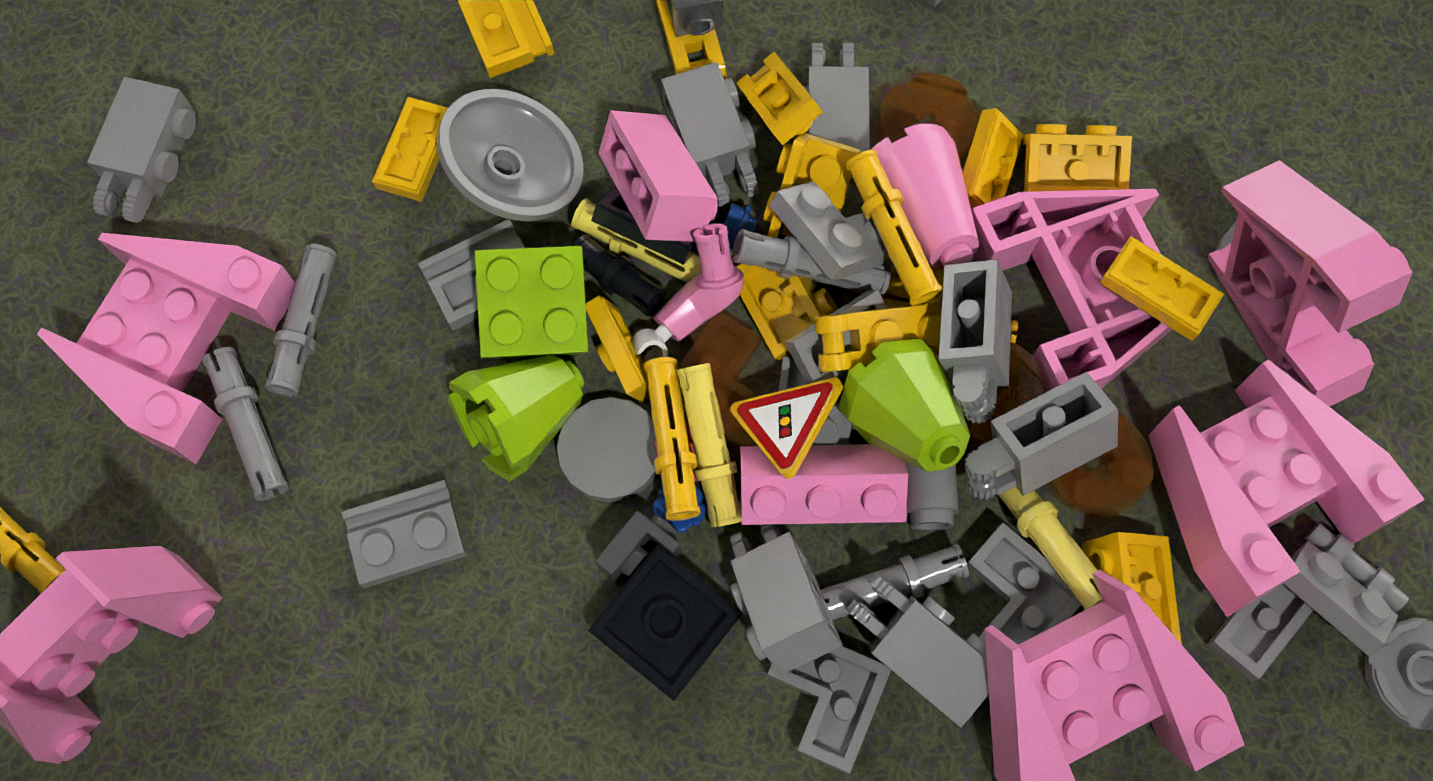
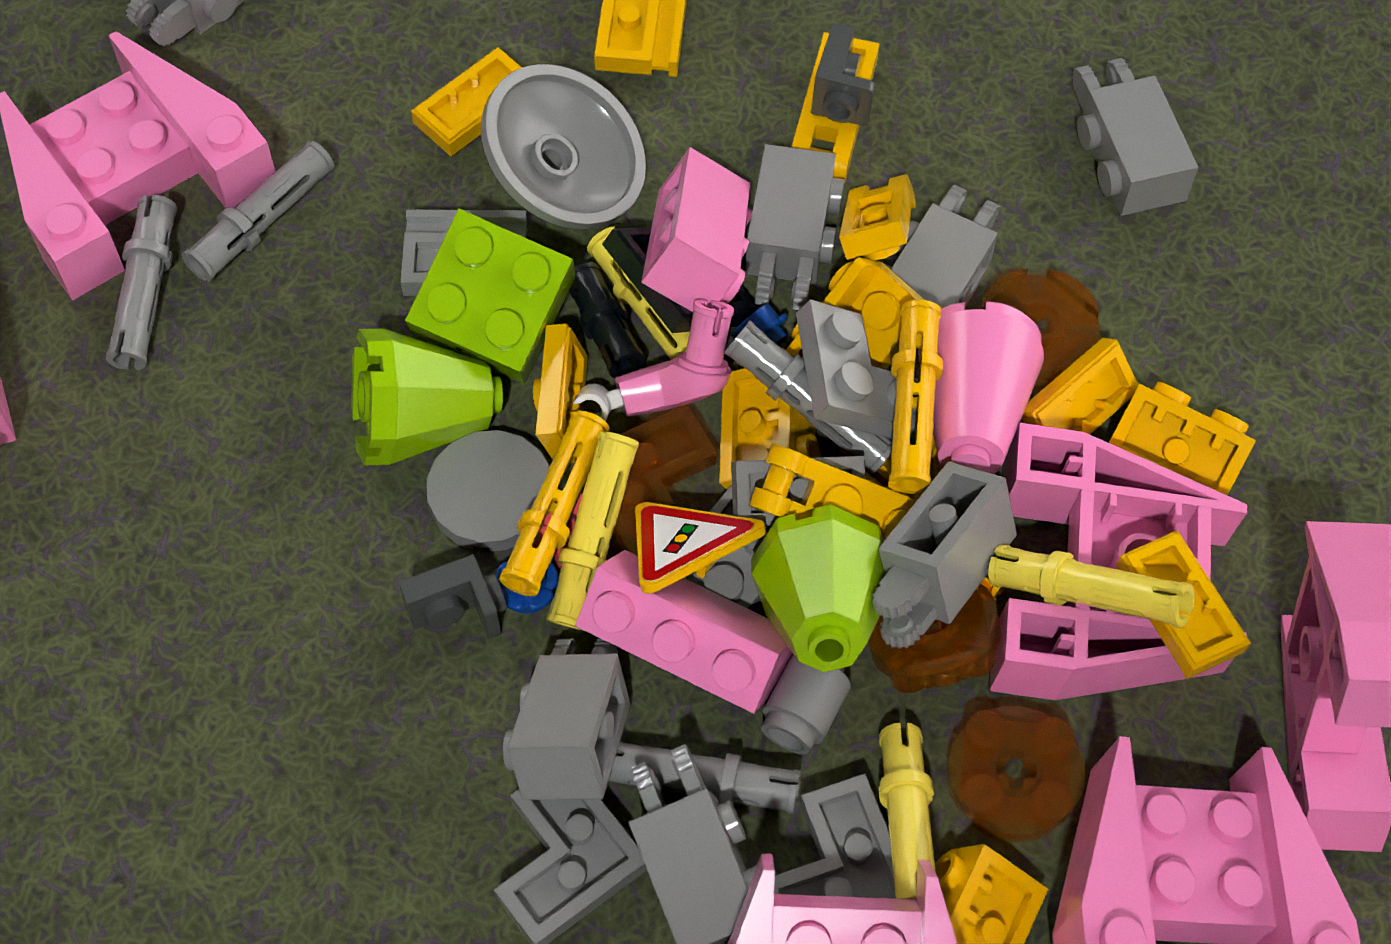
camera: 25 degrees right, 10 degrees down
(403, 534) = (229, 467): light grey plate -> none
(665, 622) = (437, 689): black plate -> none
(1044, 439) = (952, 698): light grey hinge -> none
(1096, 307) = (1065, 579): none -> light yellow pin

